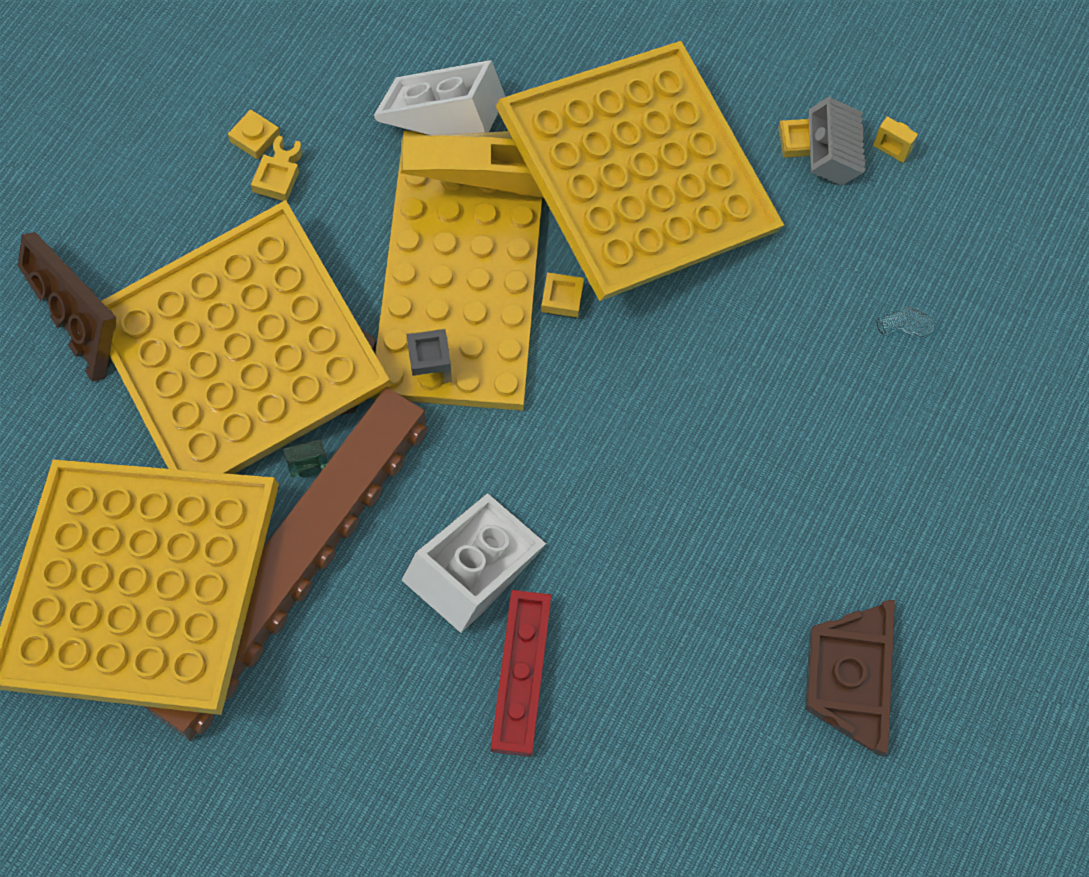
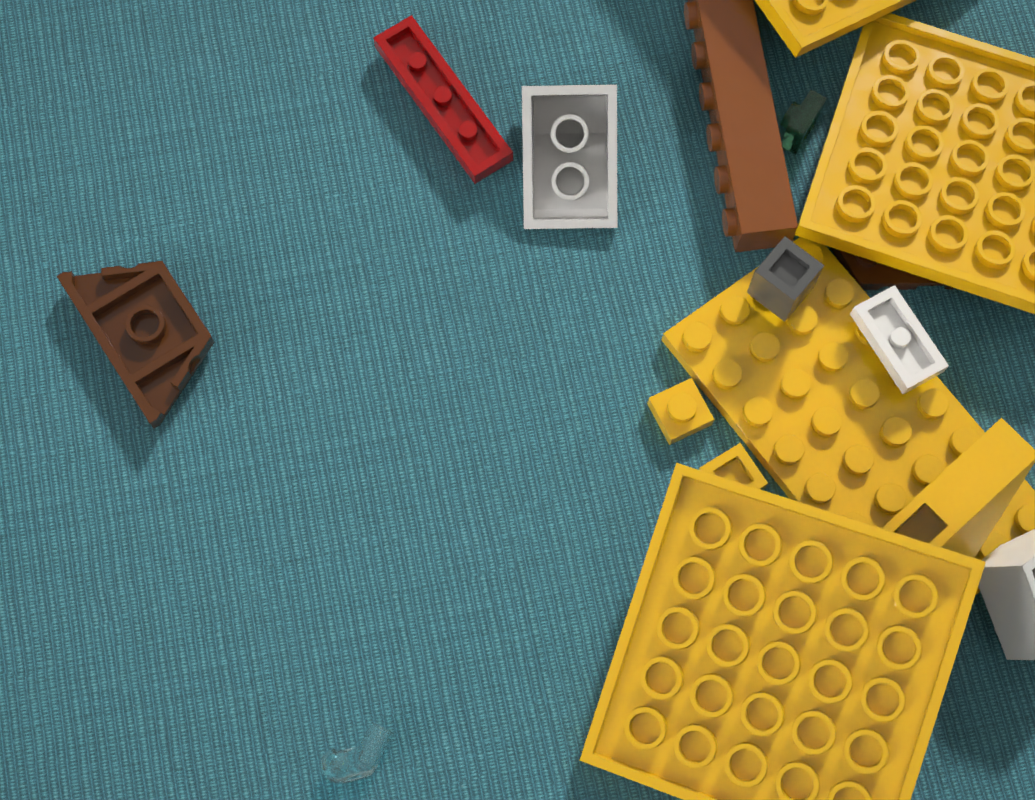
camera: 140 degrees right, 5 degrees up
(396, 278) = (898, 339): none -> white plate
(554, 357) = (680, 411): none -> yellow plate

